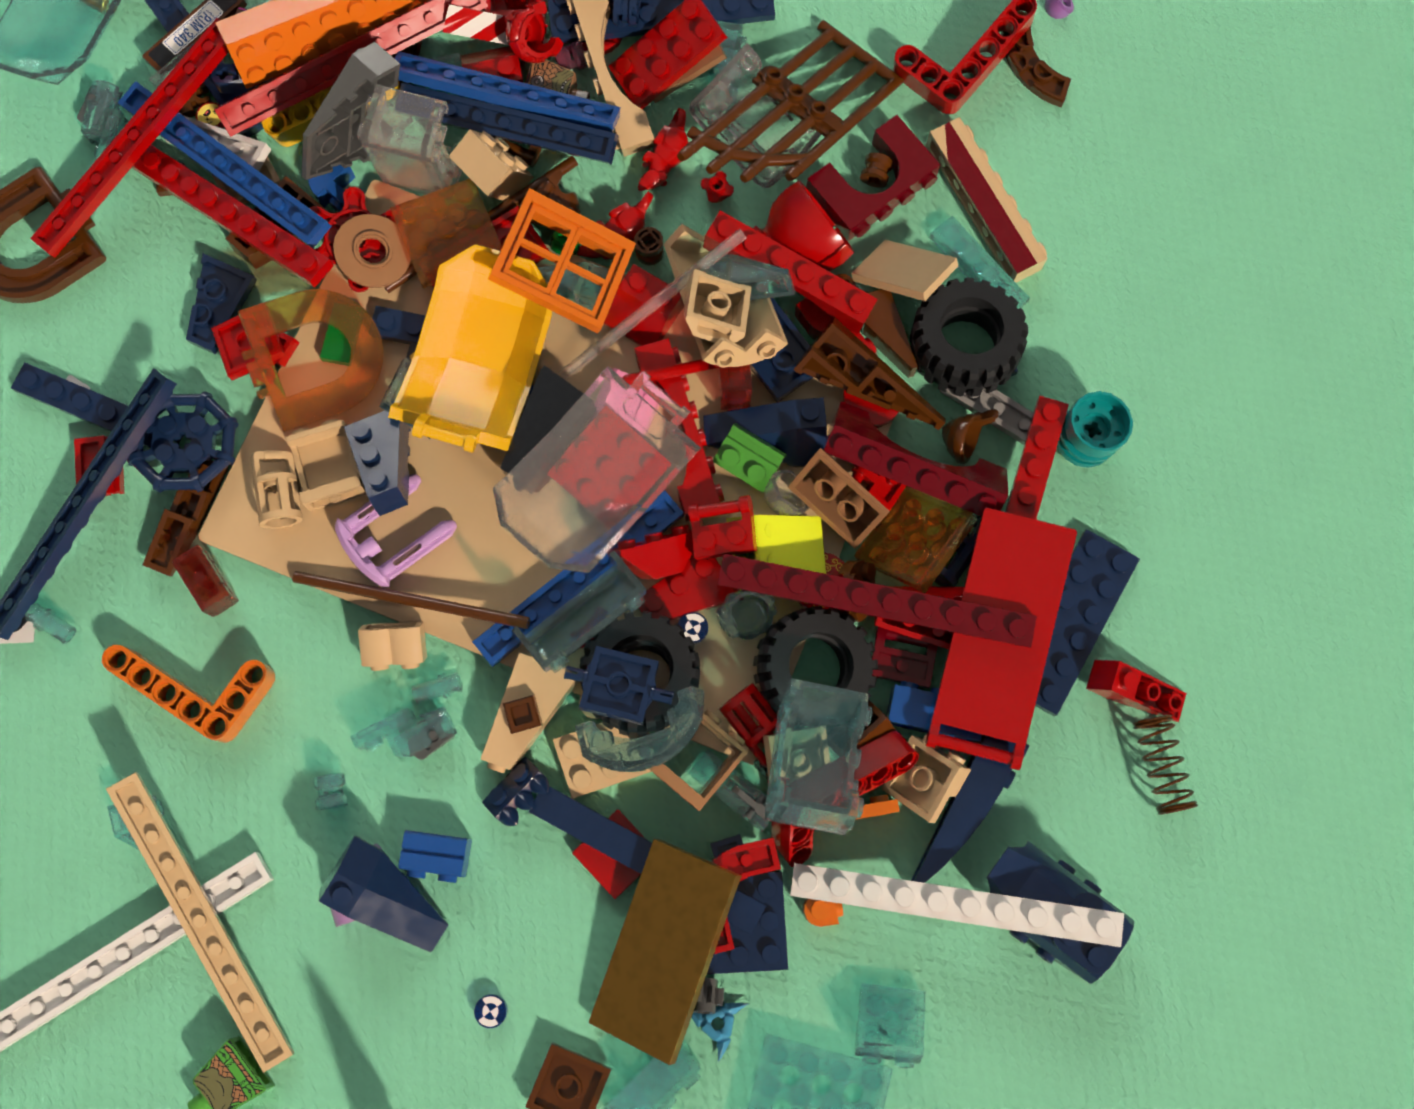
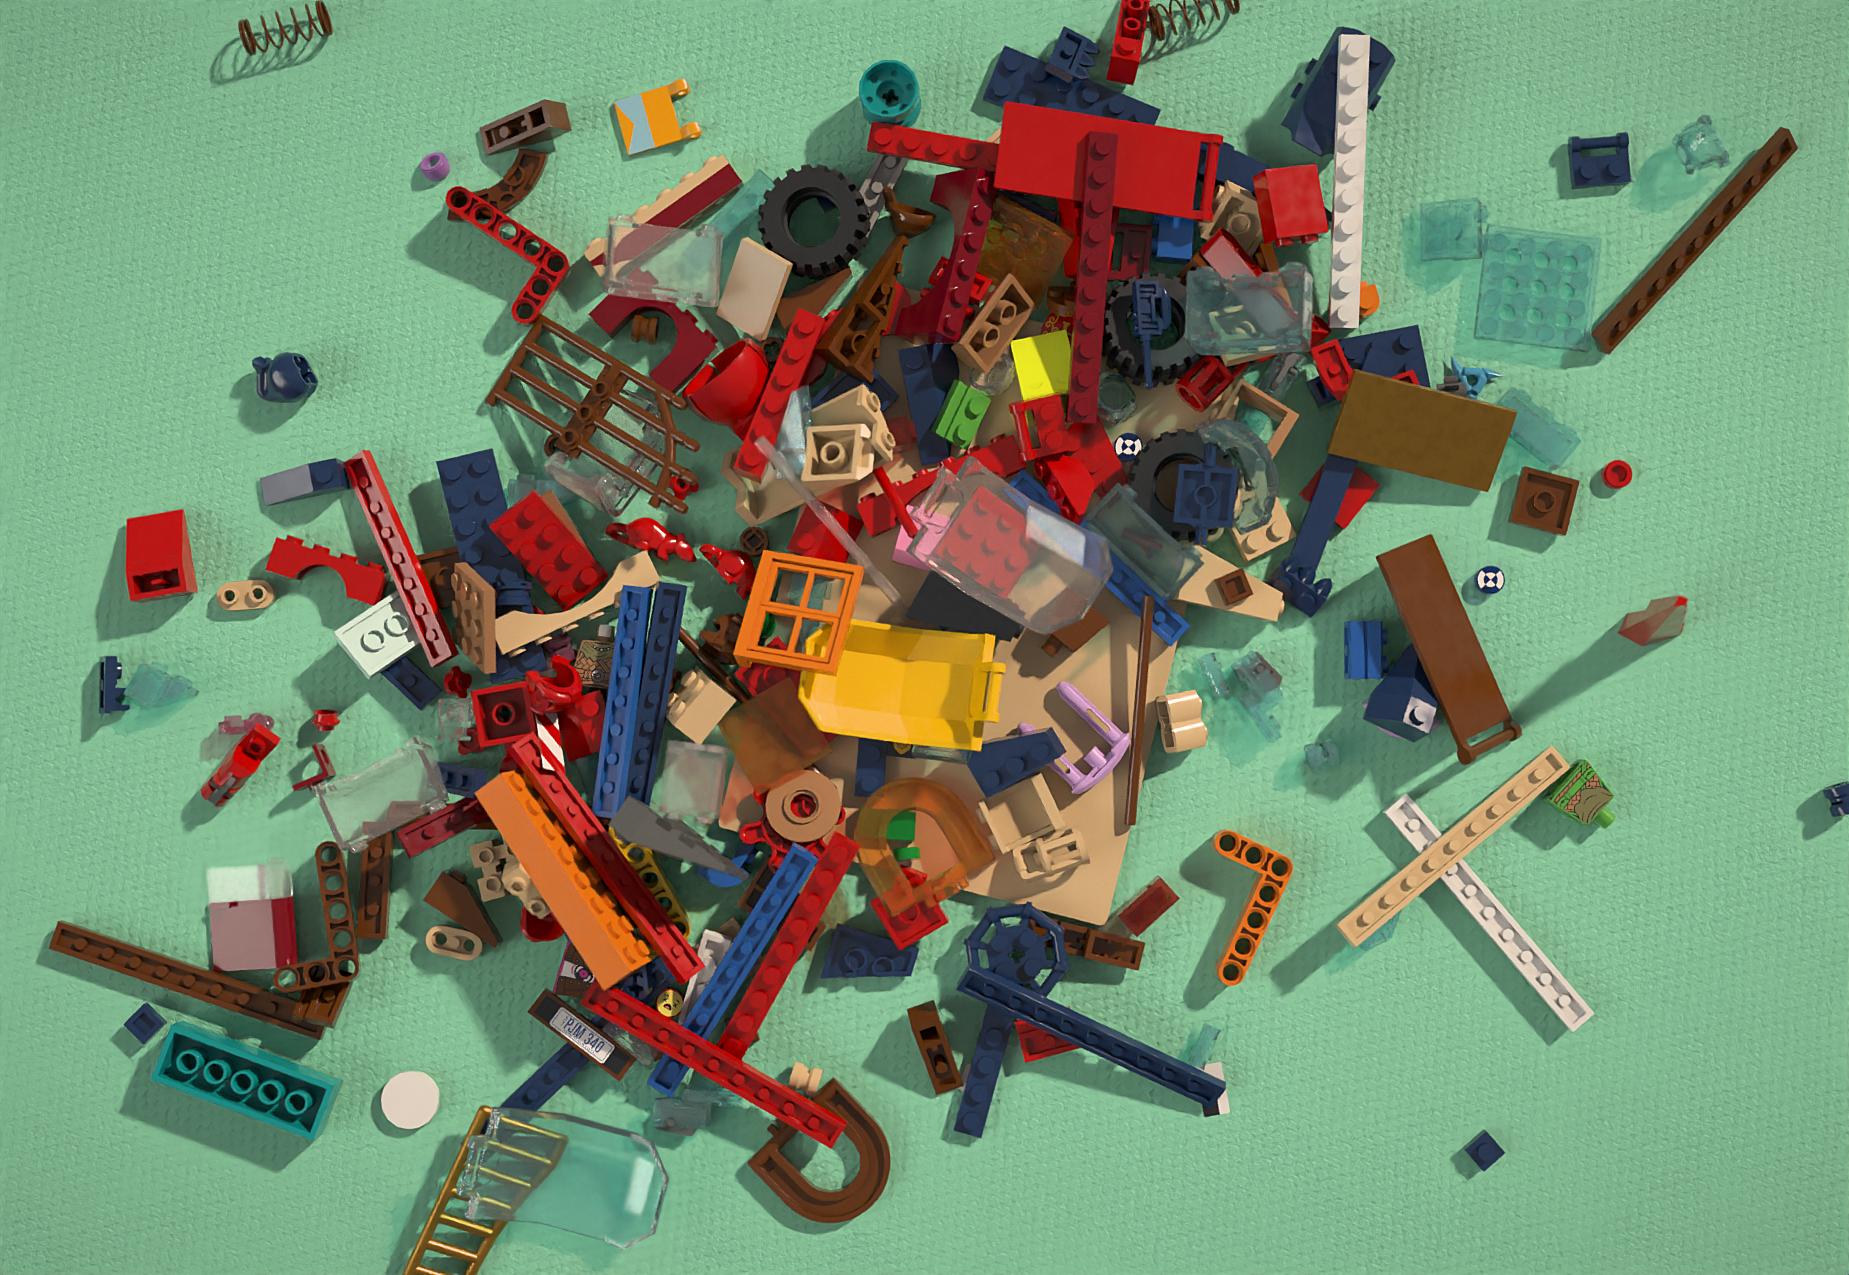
camera: 95 degrees left, 10 degrees up
(107, 227) = (805, 1079): none -> tan wheel
(112, 352) = (934, 1047): none -> reddish brown slope
(307, 346) = (906, 854): none -> green tile
(420, 945) = (1447, 646): none -> reddish brown flag
(507, 550) = (1076, 634): none -> reddish brown torso
(820, 650) = (1145, 321): none -> dark blue piece
(934, 833) = (1290, 205): none -> red brick
(939, 183) = (662, 262): none -> clear windscreen
(1089, 203) = (651, 121): none -> light orange flag
(1091, 86) = (526, 127): none -> reddish brown slope
(1124, 624) = (1071, 56): none -> dark blue plate

